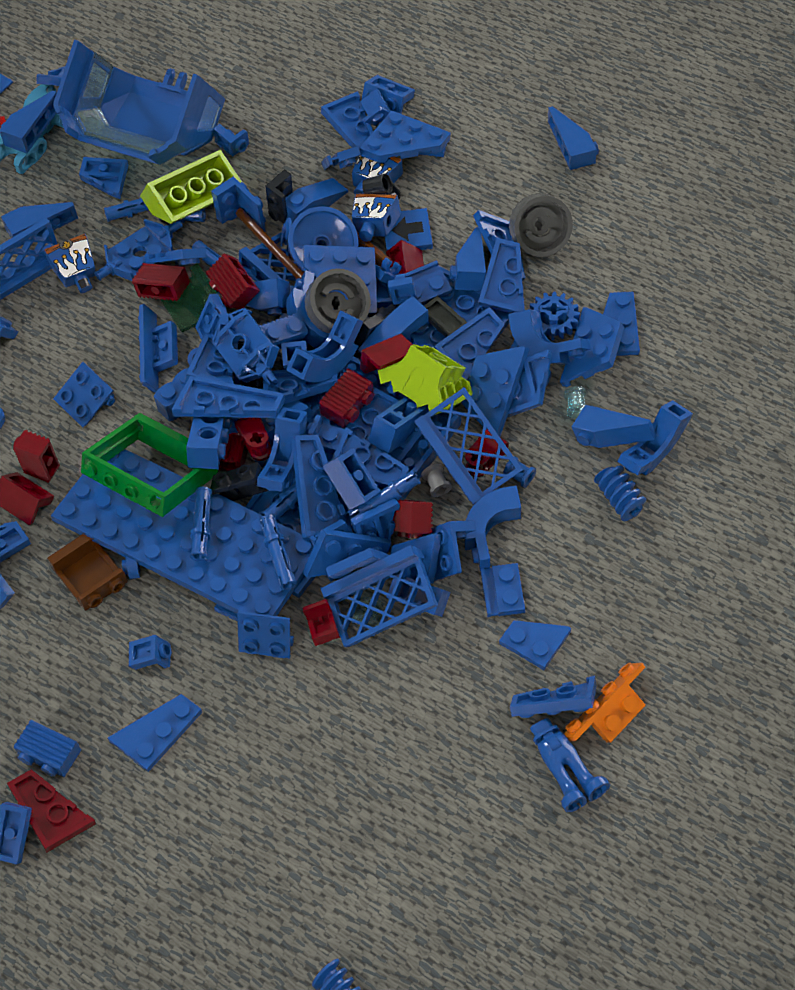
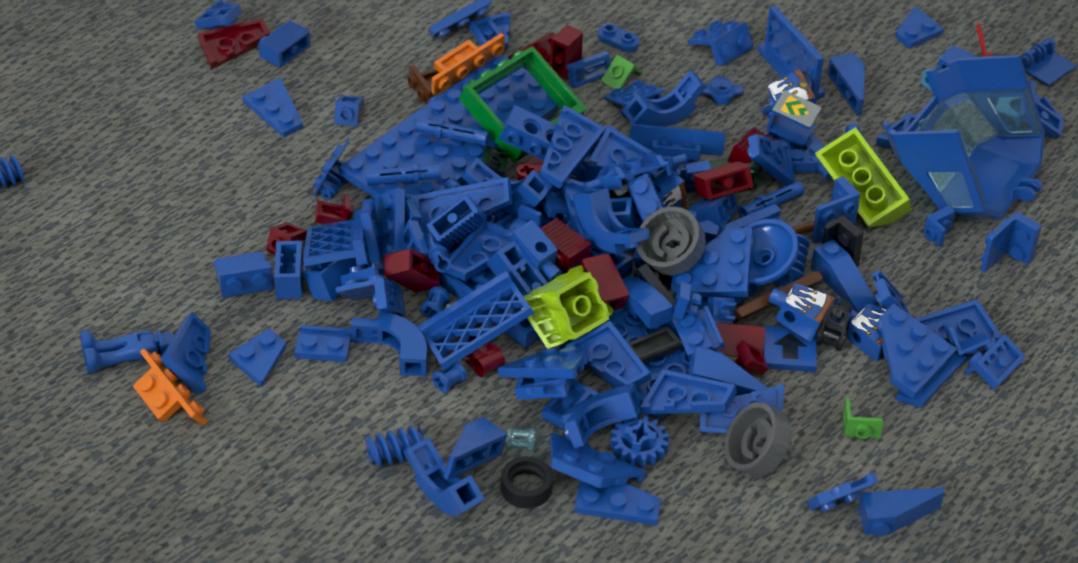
camera: 95 degrees right, 15 degrees down
(48, 412) = (619, 72): none -> bright green bracket
(57, 445) = (588, 65): none -> blue tile
(60, 326) = (722, 90): none -> blue plate
(79, 540) = (463, 60): none -> orange bracket
(102, 358) = (668, 109): none -> blue arch
(118, 245) = (793, 118): none -> piece
(251, 88) = (1014, 236): none -> blue bracket
(367, 407) = (538, 248): none -> blue torso
(368, 658) = (284, 232): none -> dark red bracket
(423, 636) = (289, 270): none -> blue brick
(431, 684) = (243, 274): none -> blue bracket
(435, 249) = (751, 359): none -> dark red tile
(436, 500) = (437, 299): none -> blue bush
(488, 175) = (860, 426): none -> bright green bracket
(569, 170) = (847, 491): none -> blue wing
(624, 404) = (526, 498): none -> black tyre

